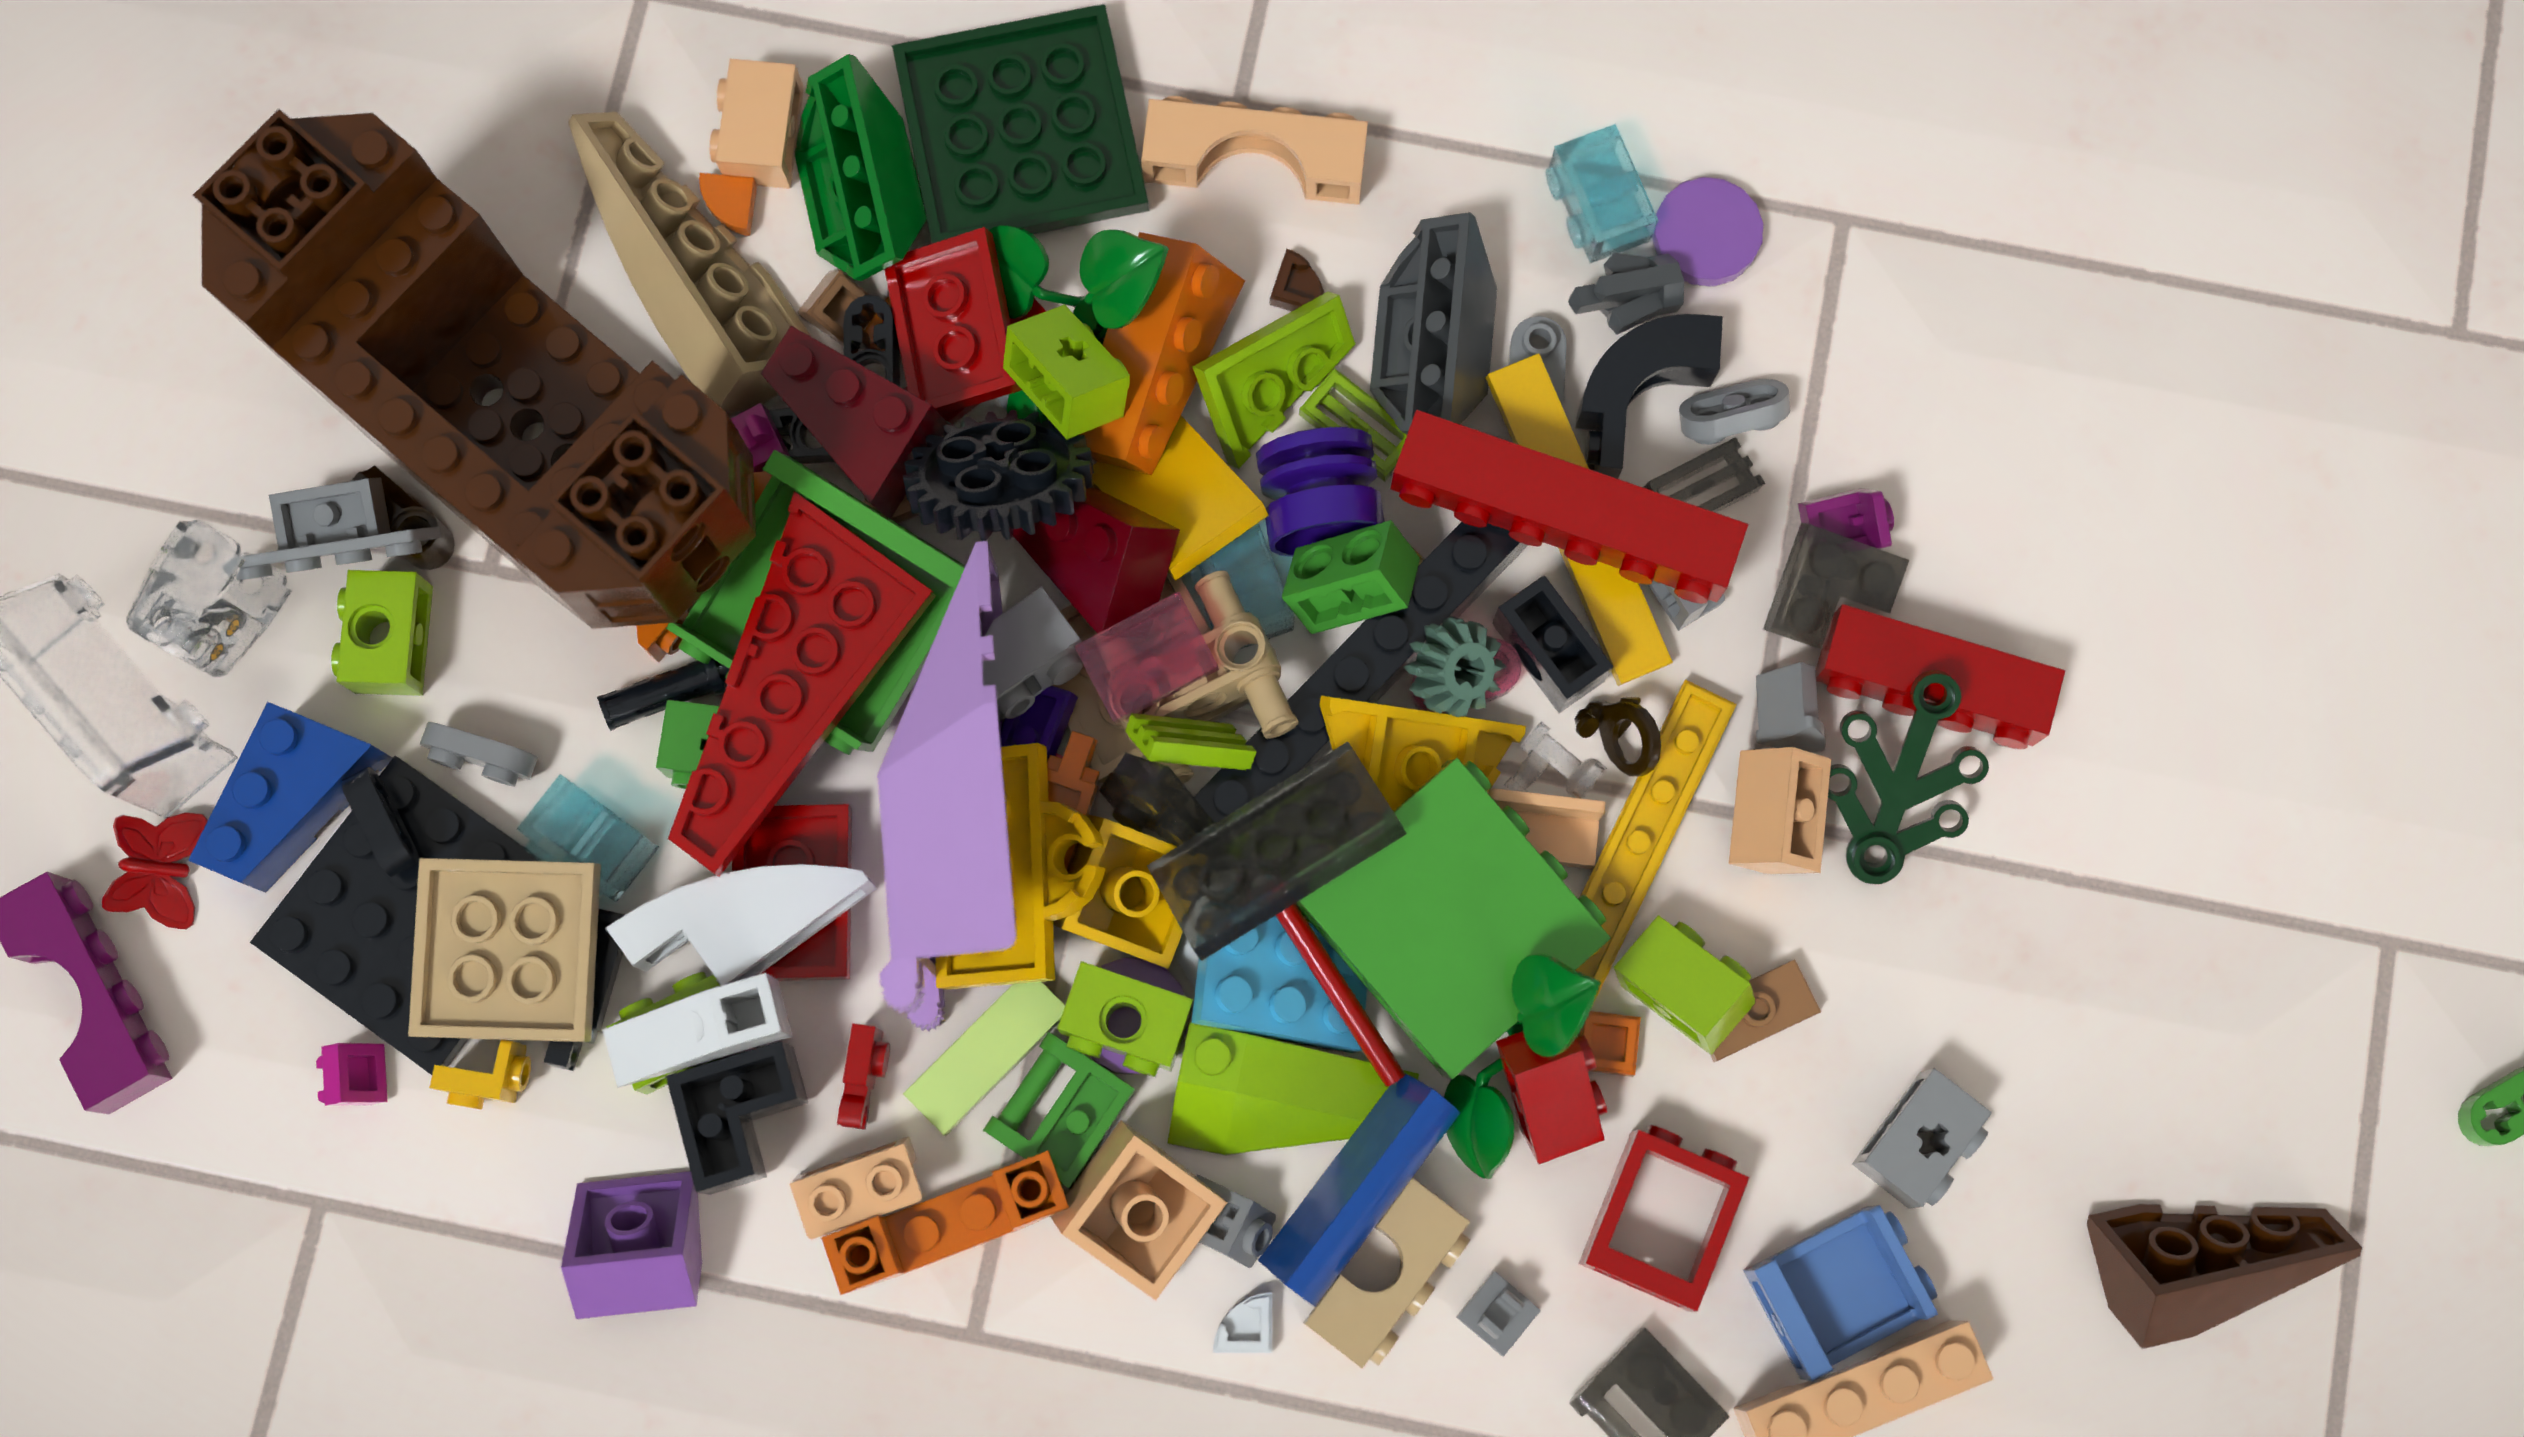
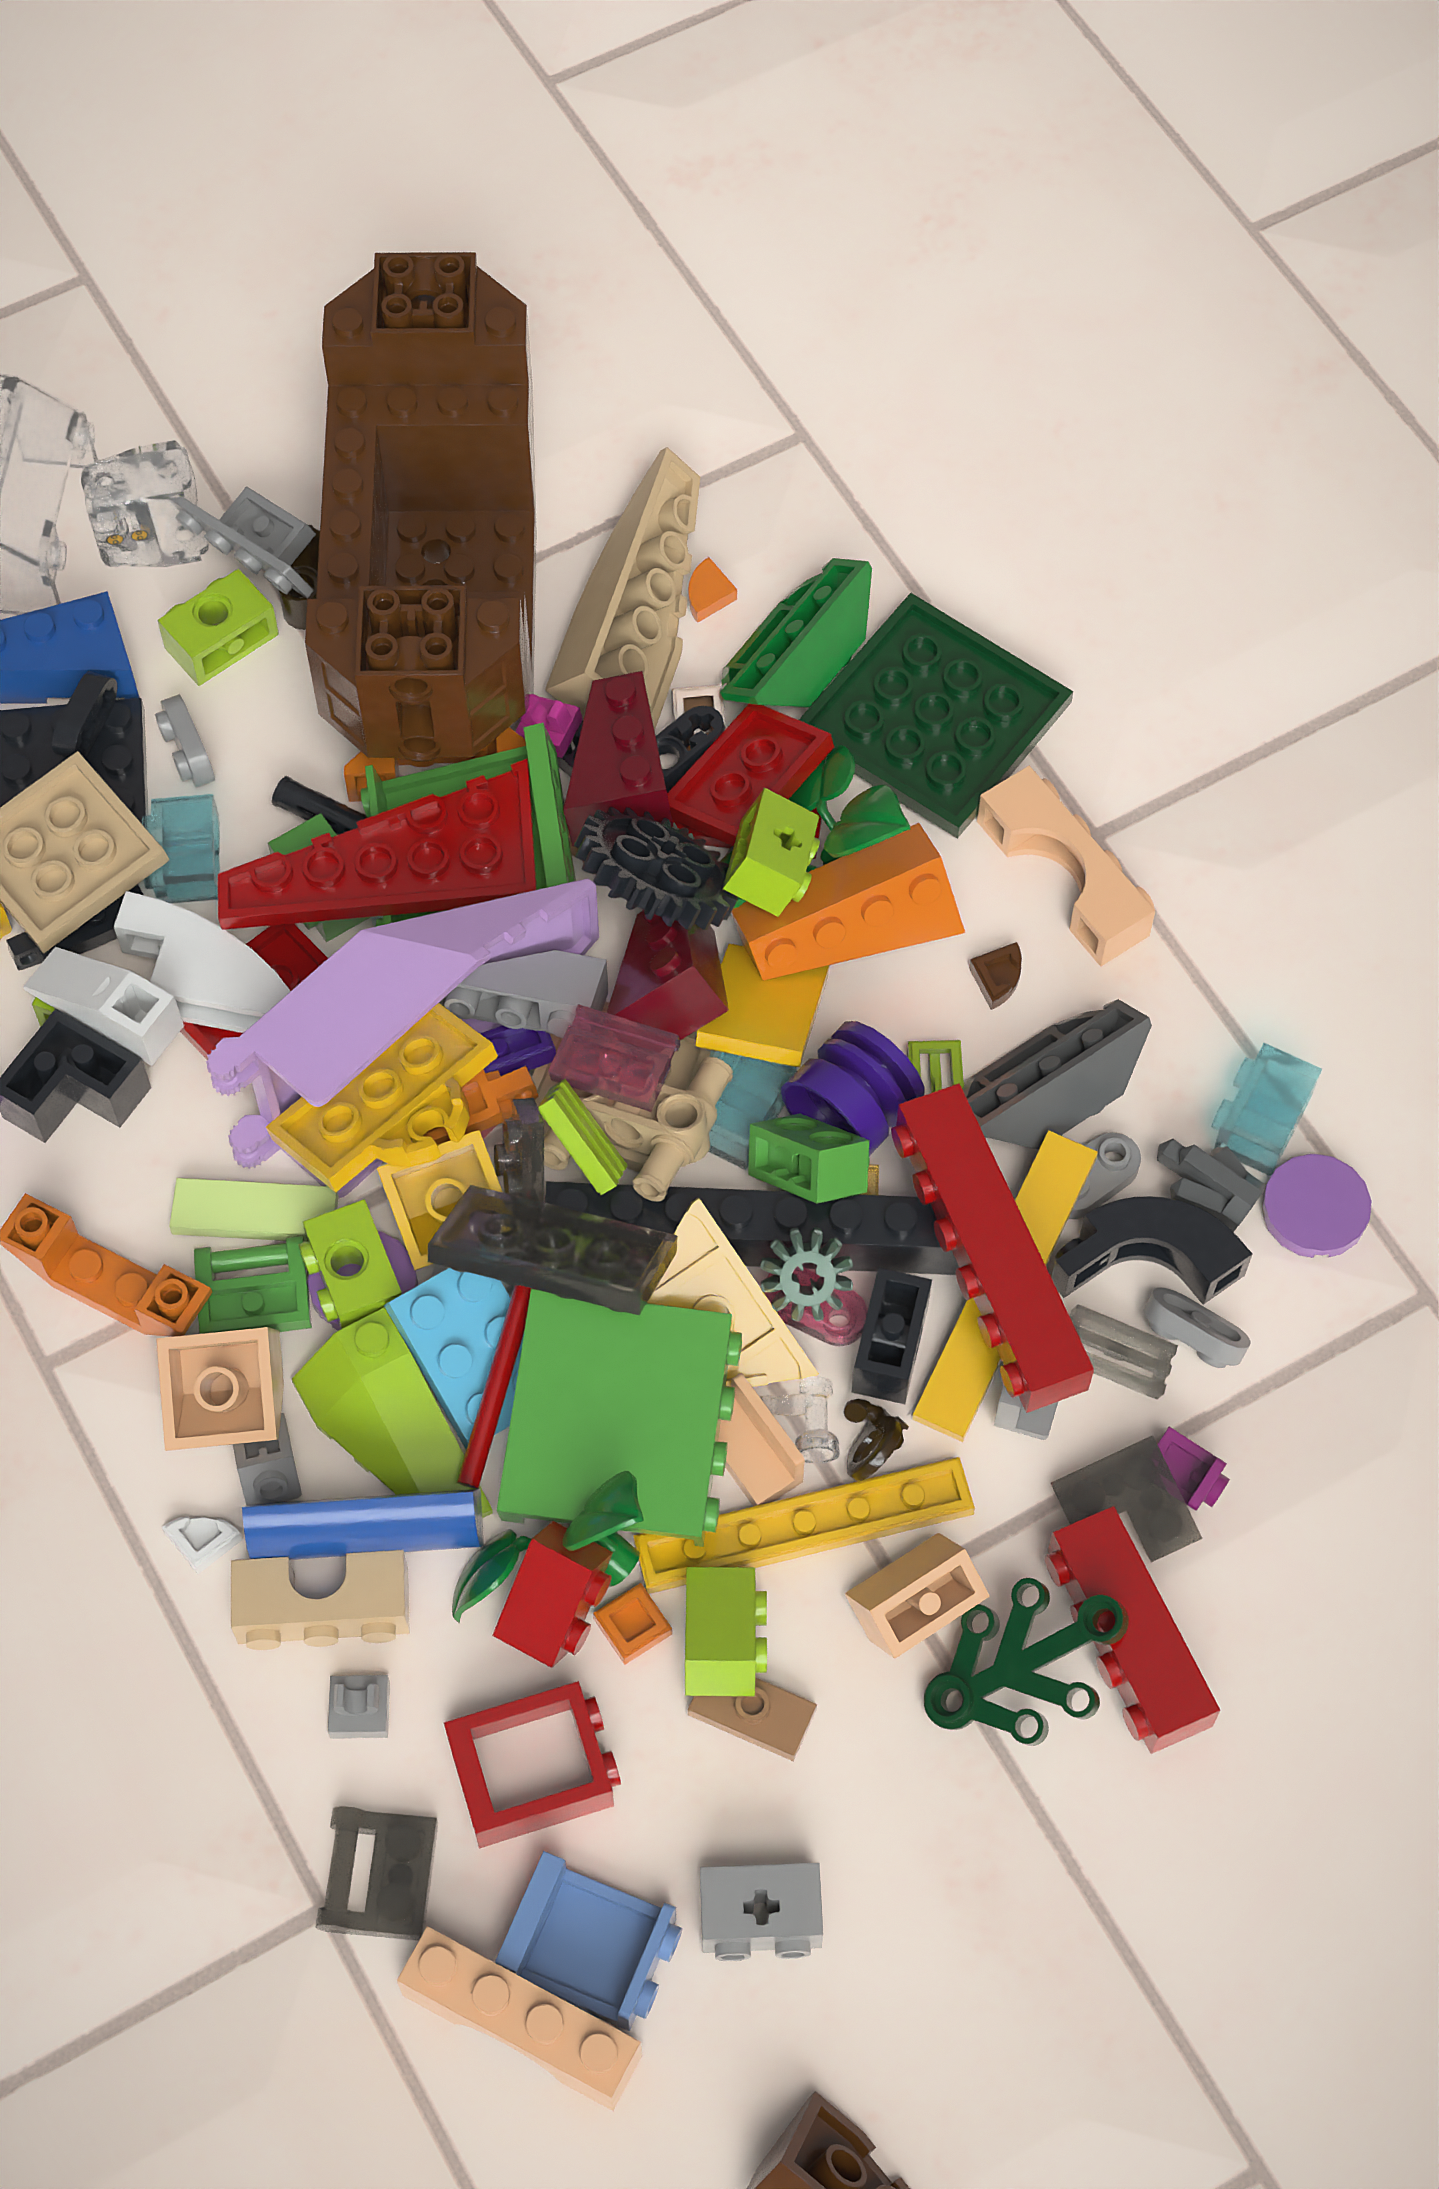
camera: 50 degrees right, 15 degrees down
(758, 121) = (776, 560): light nougat brick -> none
(857, 1188) = (83, 1193): light nougat bracket -> none
(865, 1061) = (170, 1137): red plate -> none
(1268, 370) = (917, 997): lime wing -> none
(1789, 709) = (1003, 1545): light grey tile -> none

